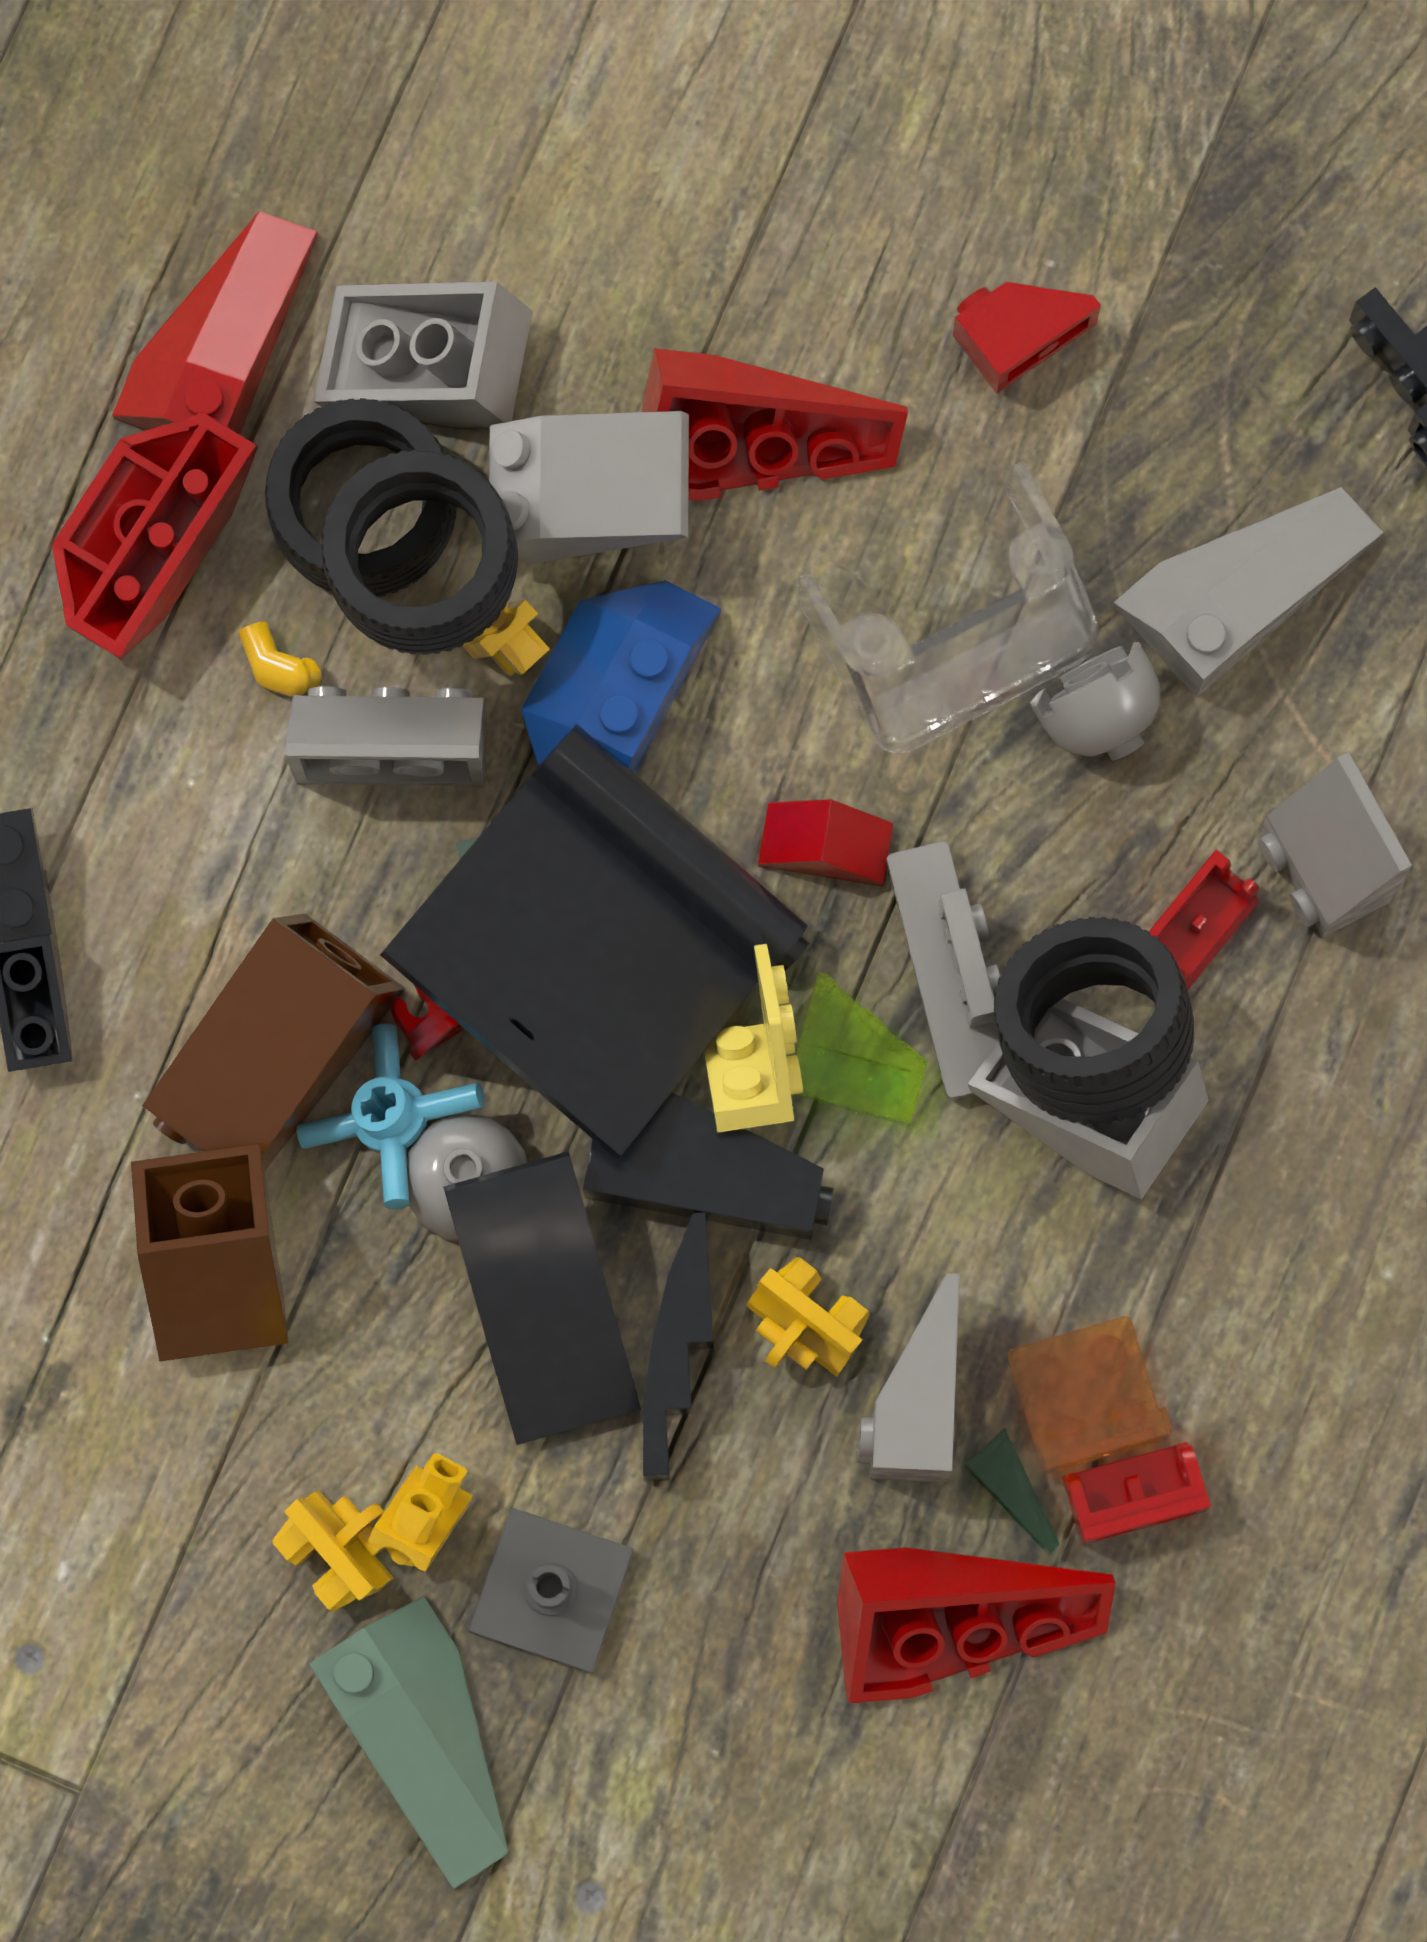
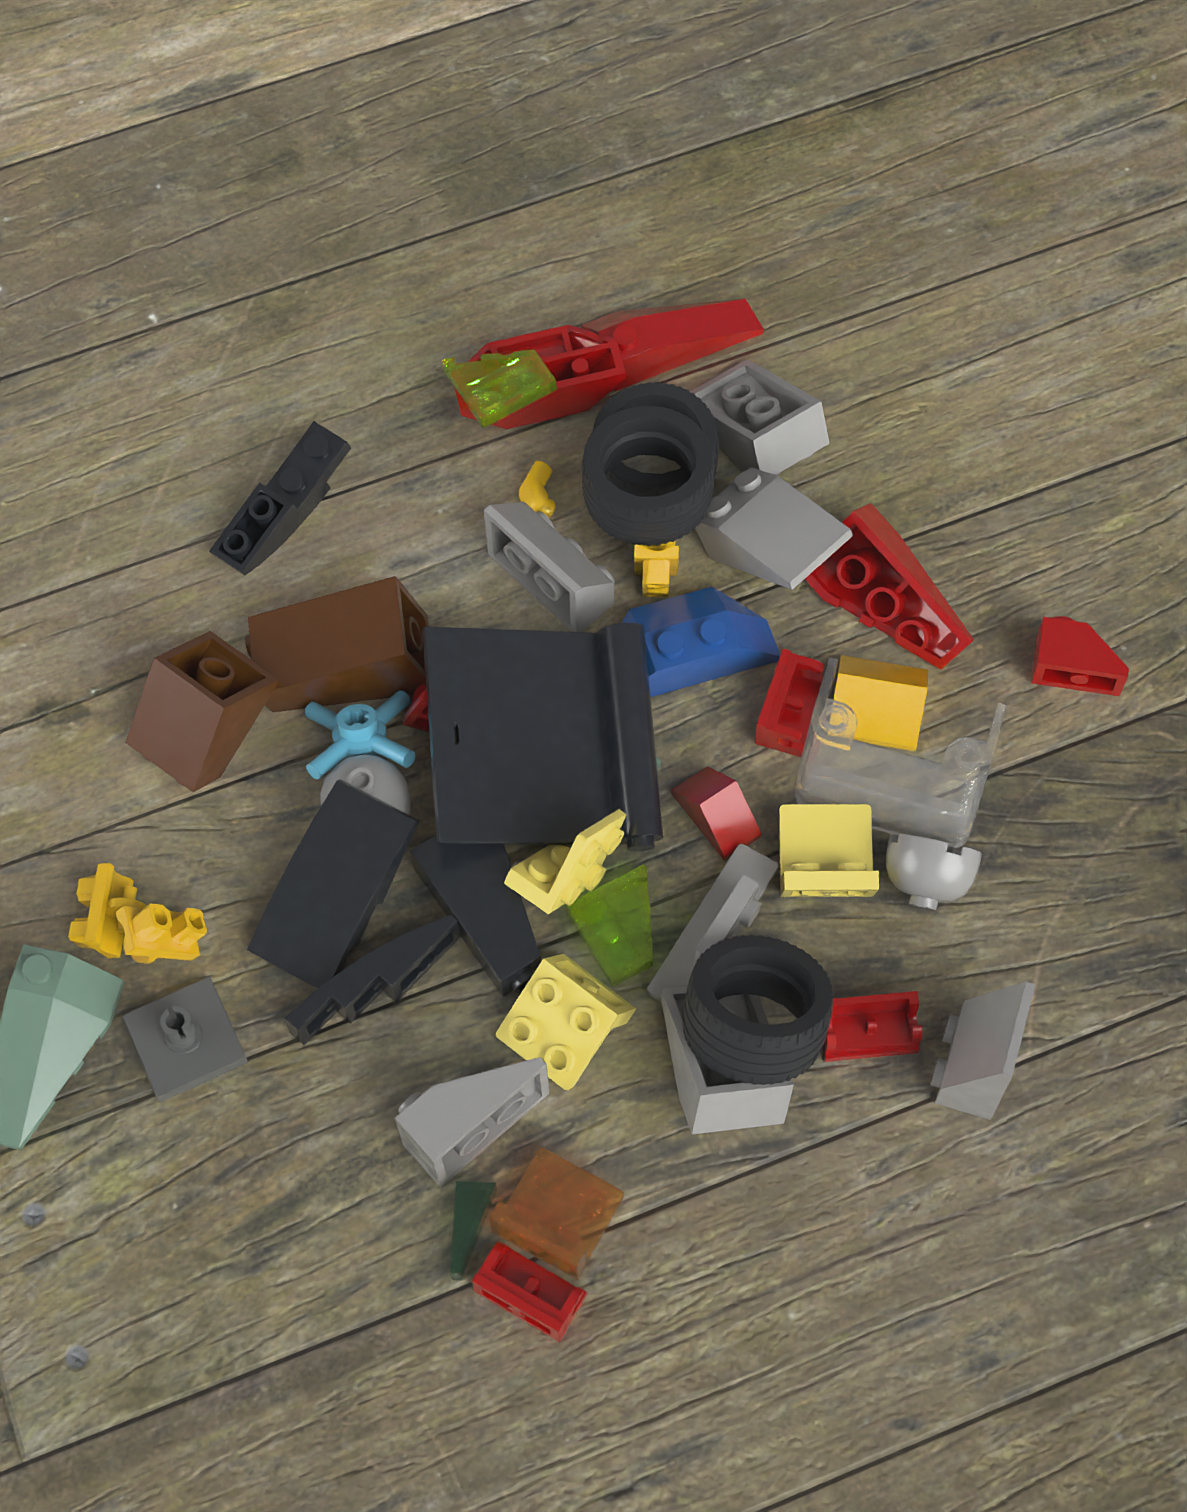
camera: 45 degrees right, 15 degrees down
(139, 589) = (500, 383): none -> clear neon green wing
(786, 654) = (789, 703): none -> red hinge
(800, 1325) = (445, 1028): yellow hips -> none
(871, 557) = (884, 699): none -> yellow slope
(901, 1205) = (563, 1018): none -> light yellow bracket
(936, 1613) = (361, 1249): red wedge -> none
(984, 785) = (826, 851): none -> light yellow bracket
(1234, 591) = (1061, 885): light grey wedge -> none

